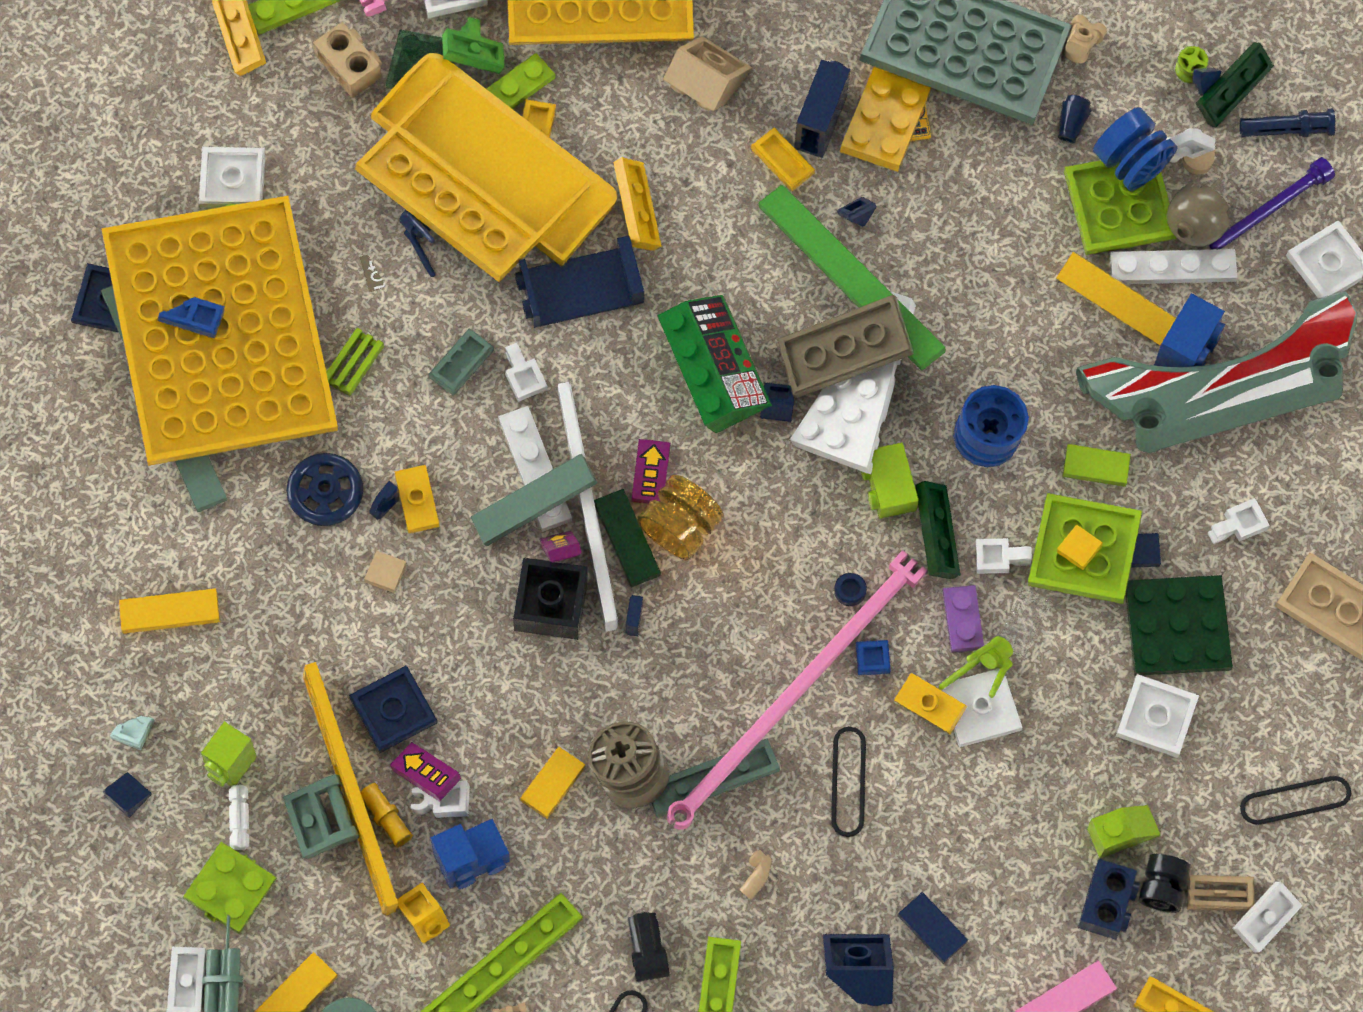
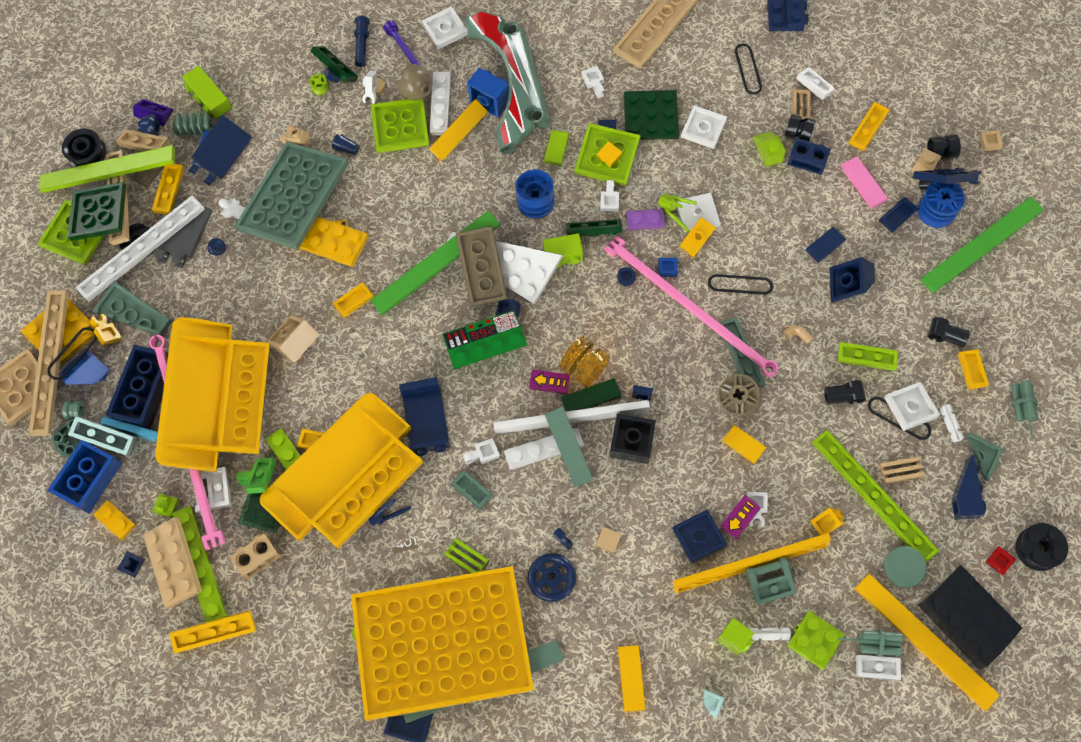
camera: 80 degrees left, 0 degrees up
(127, 794) = (755, 706): dark blue slope -> none
(195, 316) = (433, 655): blue tile -> none
(231, 176) = (330, 634): white plate -> none
(386, 815) = (767, 541): yellow pin -> none
(417, 499) = (563, 519): yellow plate -> none
(469, 853) = (794, 491): blue brick -> none
(560, 546) = (600, 431): magenta tile -> none
(637, 204) = (375, 382): yellow plate -> none
(822, 108) = (326, 271): dark blue brick -> none
(858, 211) = (391, 260): dark blue slope -> none
(1135, 149) = (375, 105): blue wheel -> none

